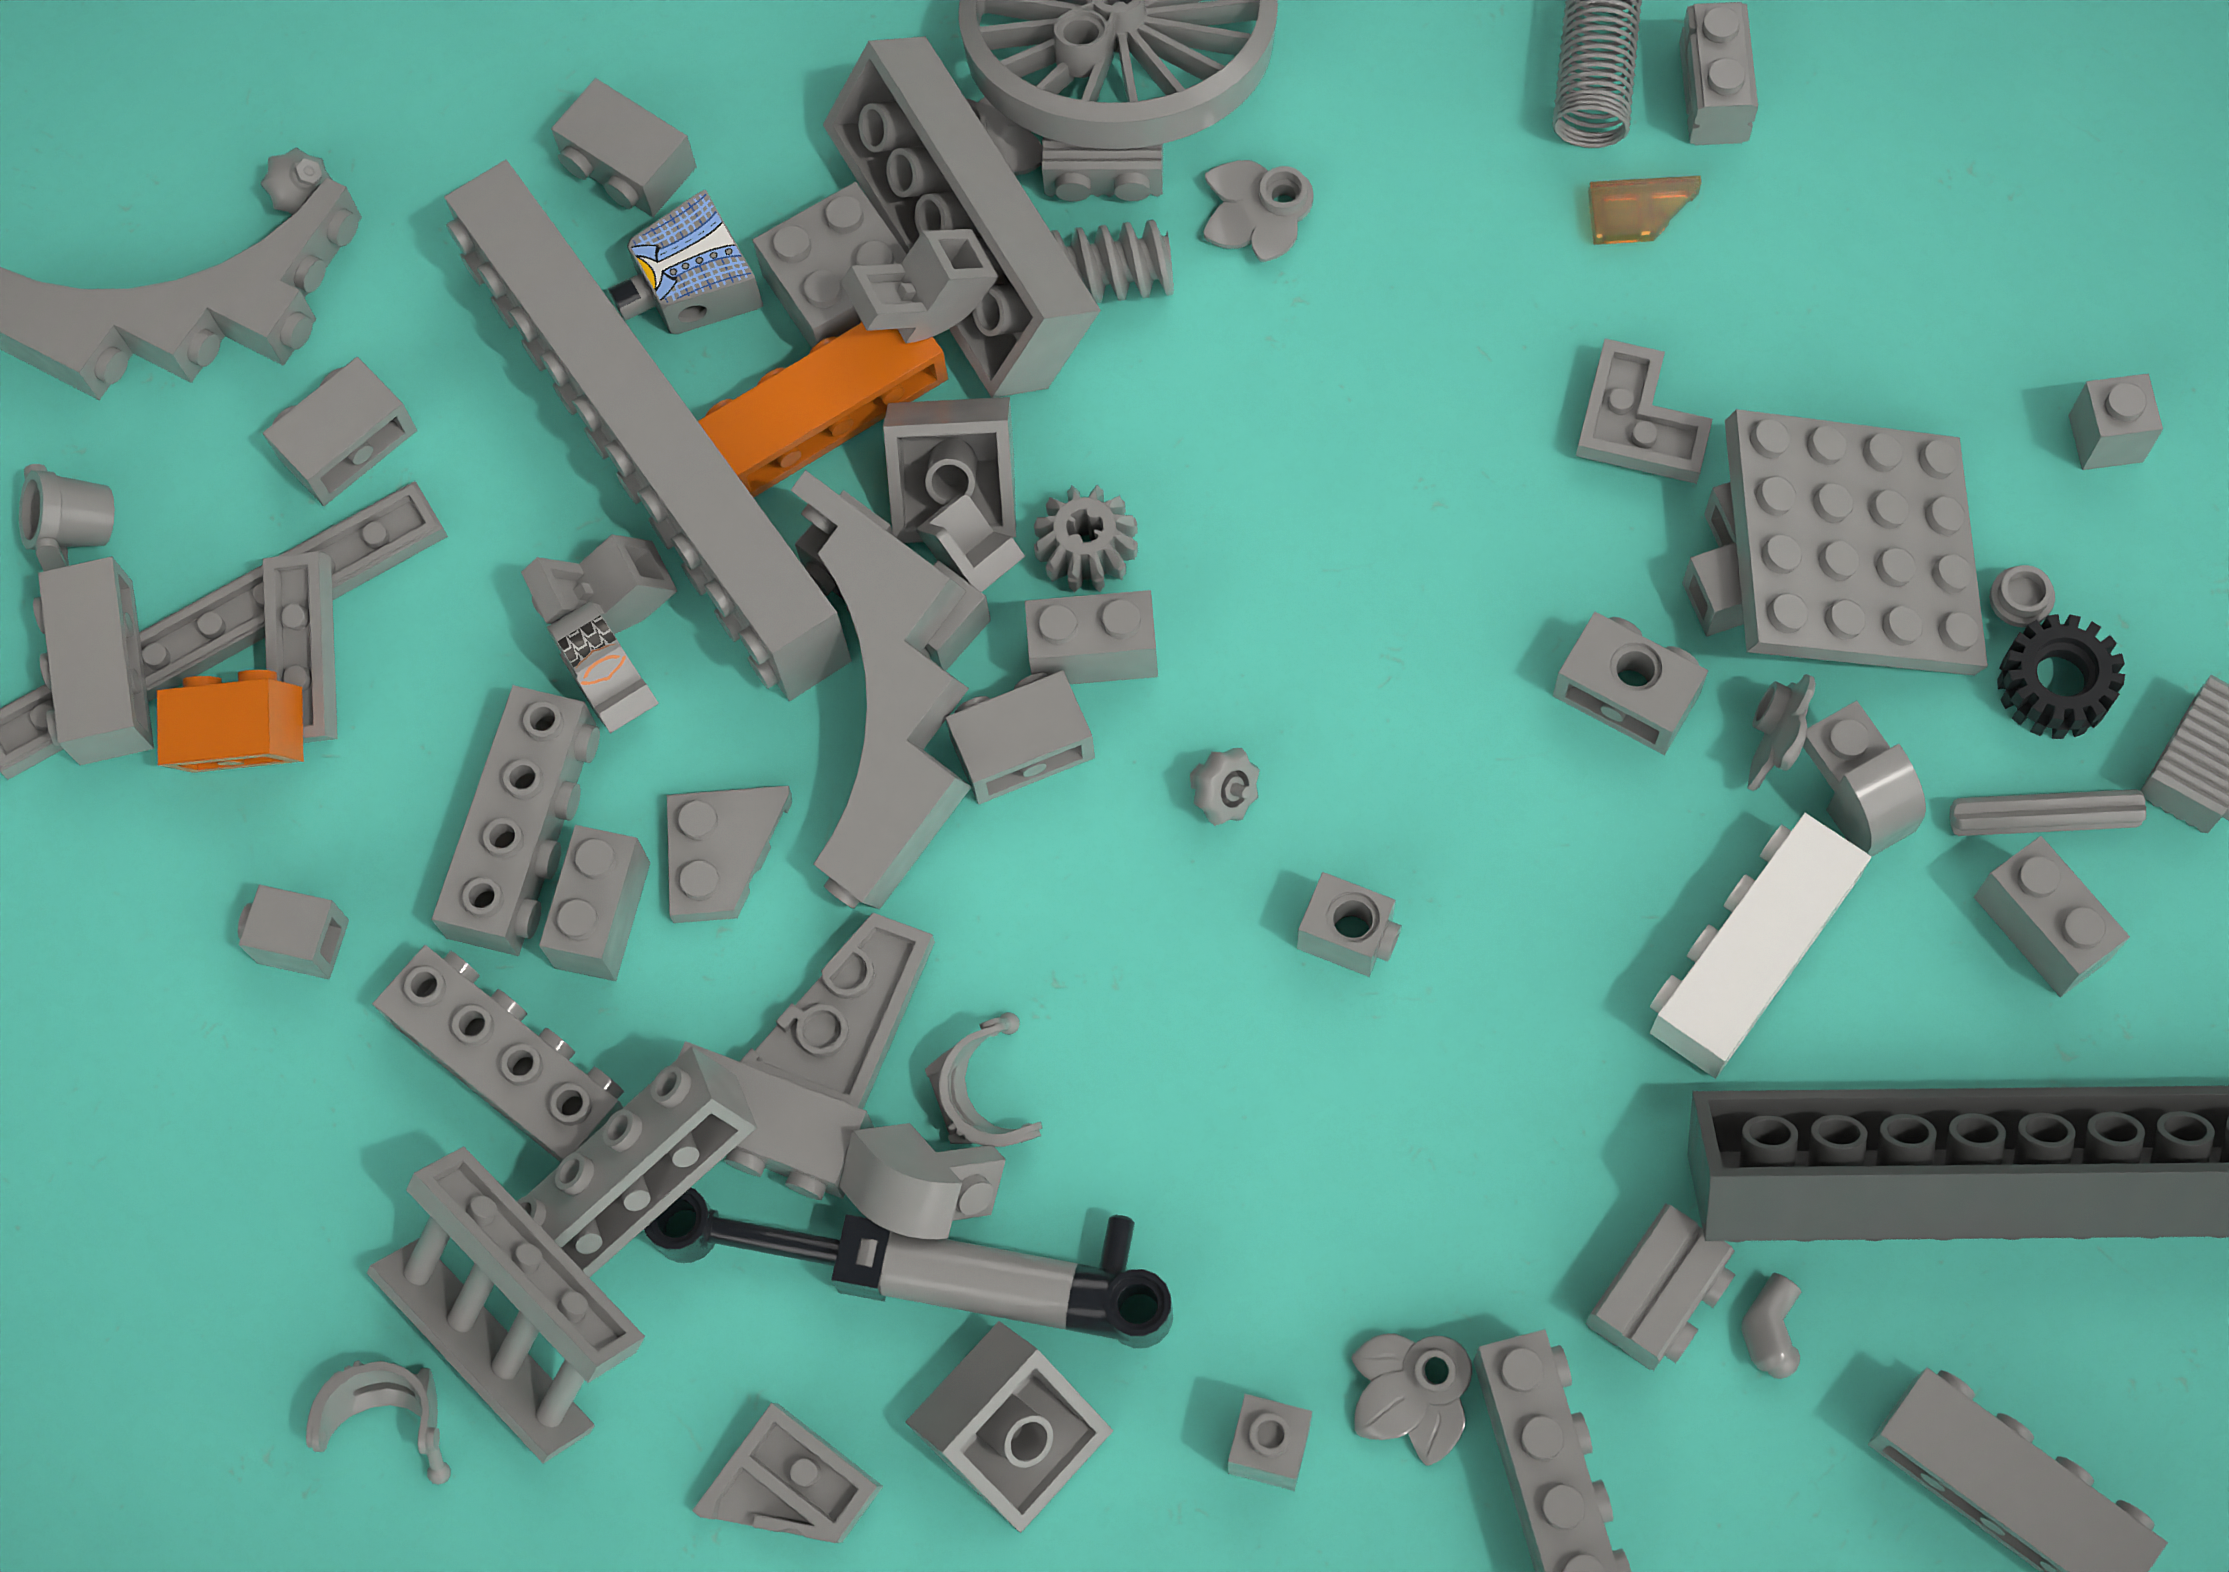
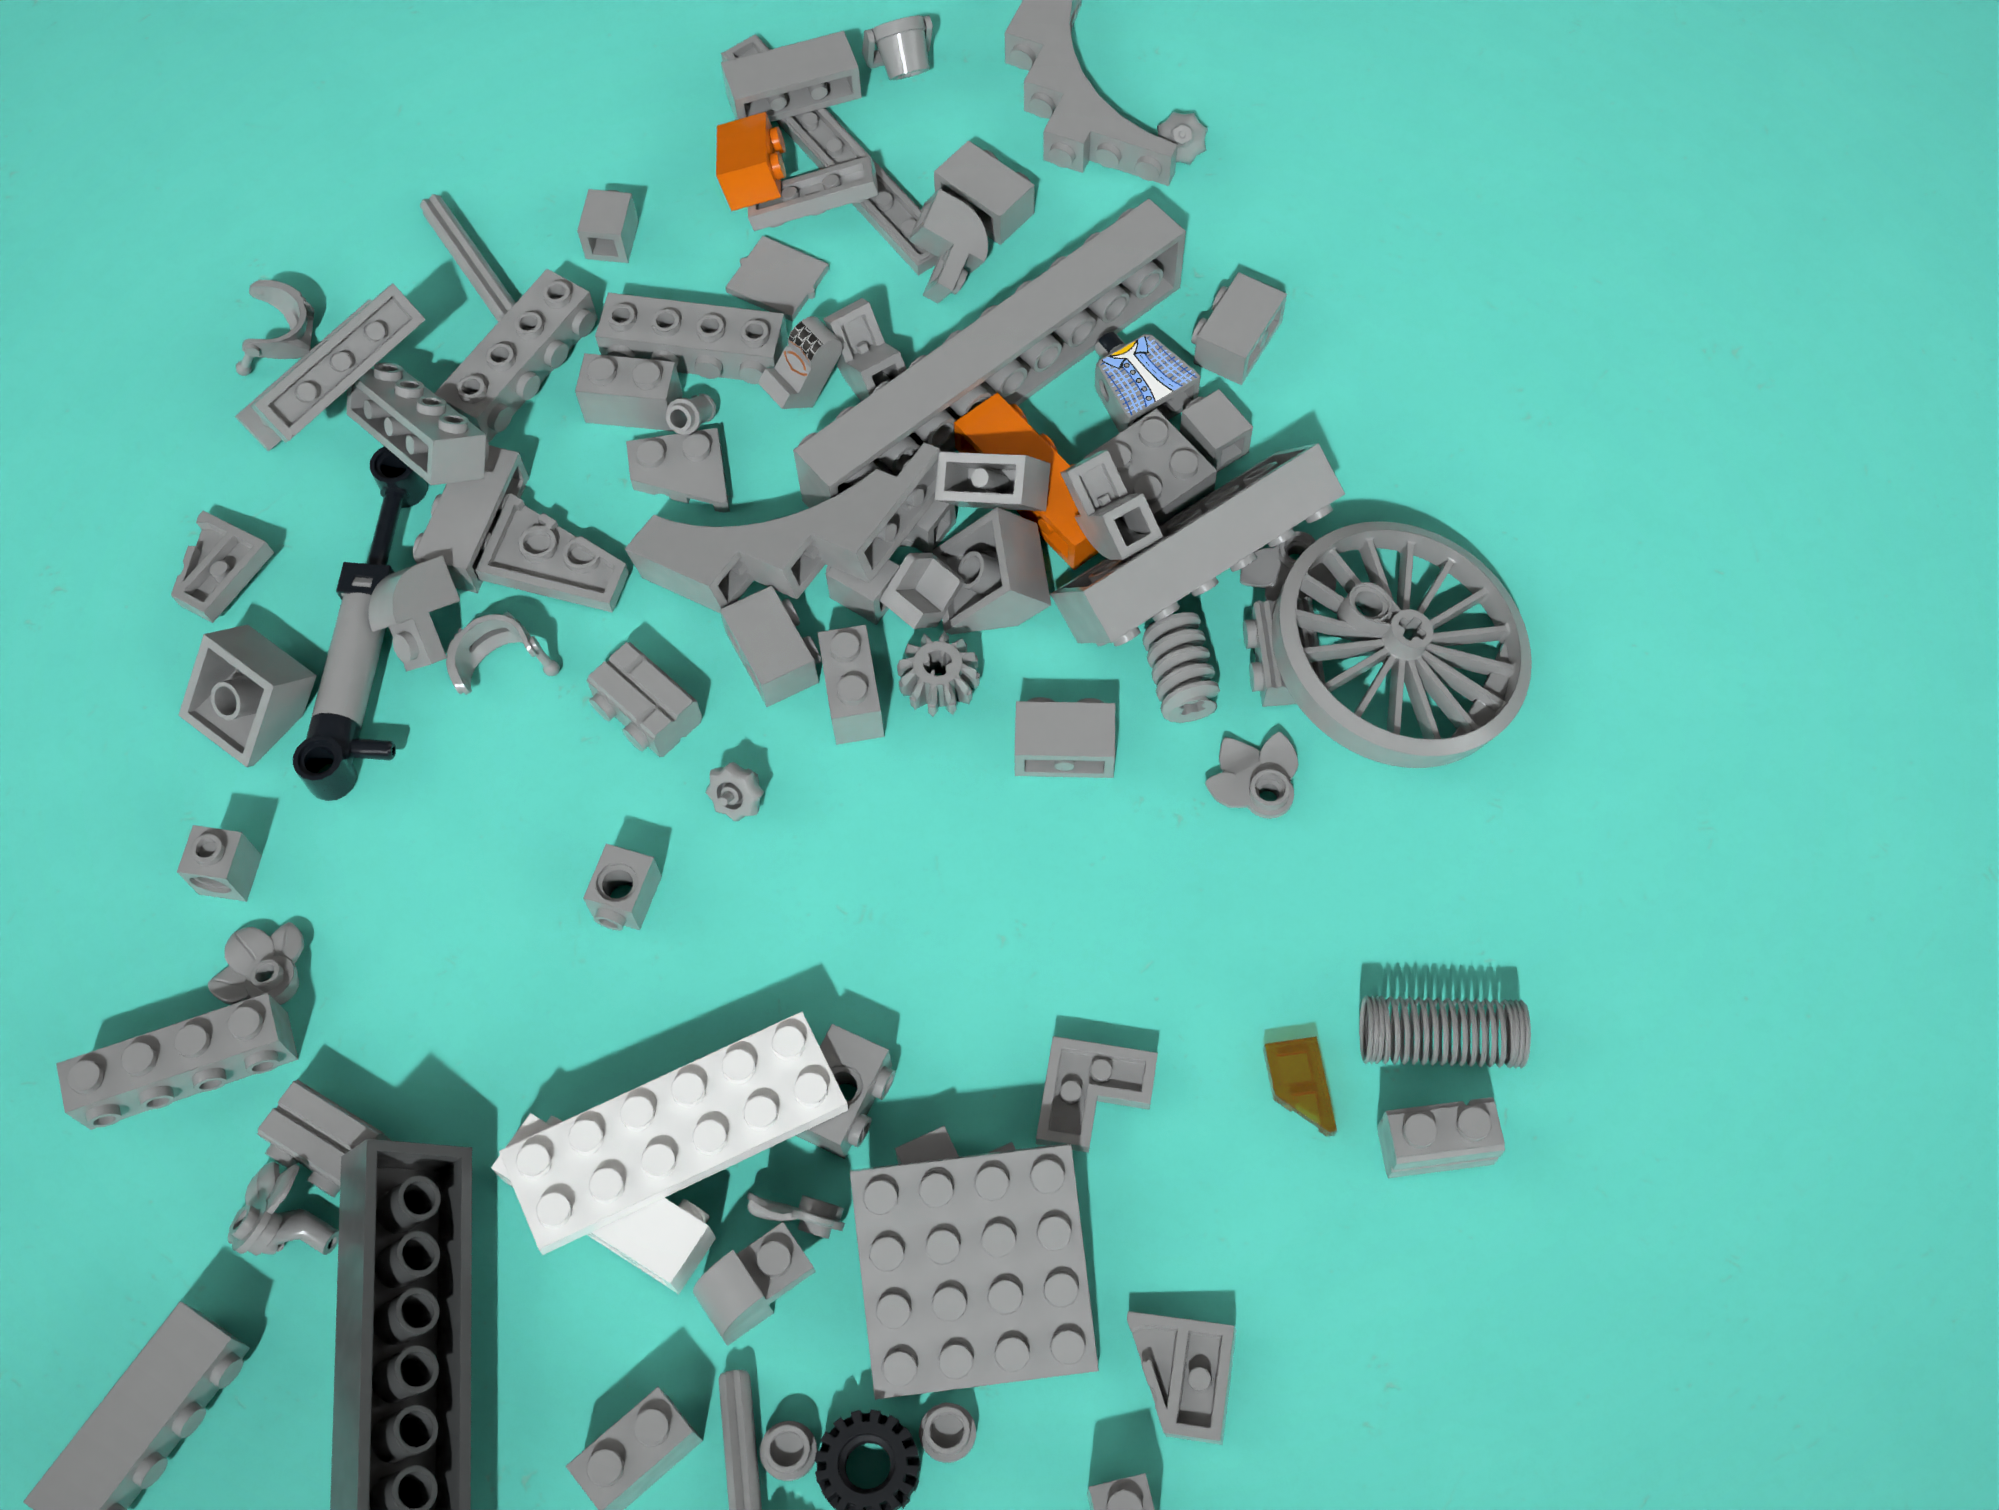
camera: 80 degrees right, 5 degrees down
(304, 1138) = (467, 256): none -> light grey axle
(419, 716) = (777, 278): none -> light grey piece
(431, 463) = (955, 236): none -> light grey brick
(653, 822) = (687, 414): none -> light grey pin
(772, 188) = (1216, 429): none -> light grey brick
(853, 421) = (992, 481): none -> light grey brick
(1082, 895) = (643, 700): none -> light grey brick
(1192, 402) = (1065, 738): none -> light grey brick
(1694, 847) = (672, 1132): none -> white plate
(1752, 1354) = (257, 1221): none -> light grey plate
(1963, 351) = (1187, 1372): none -> light grey wing
(2041, 761) = (788, 1451): none -> light grey plate

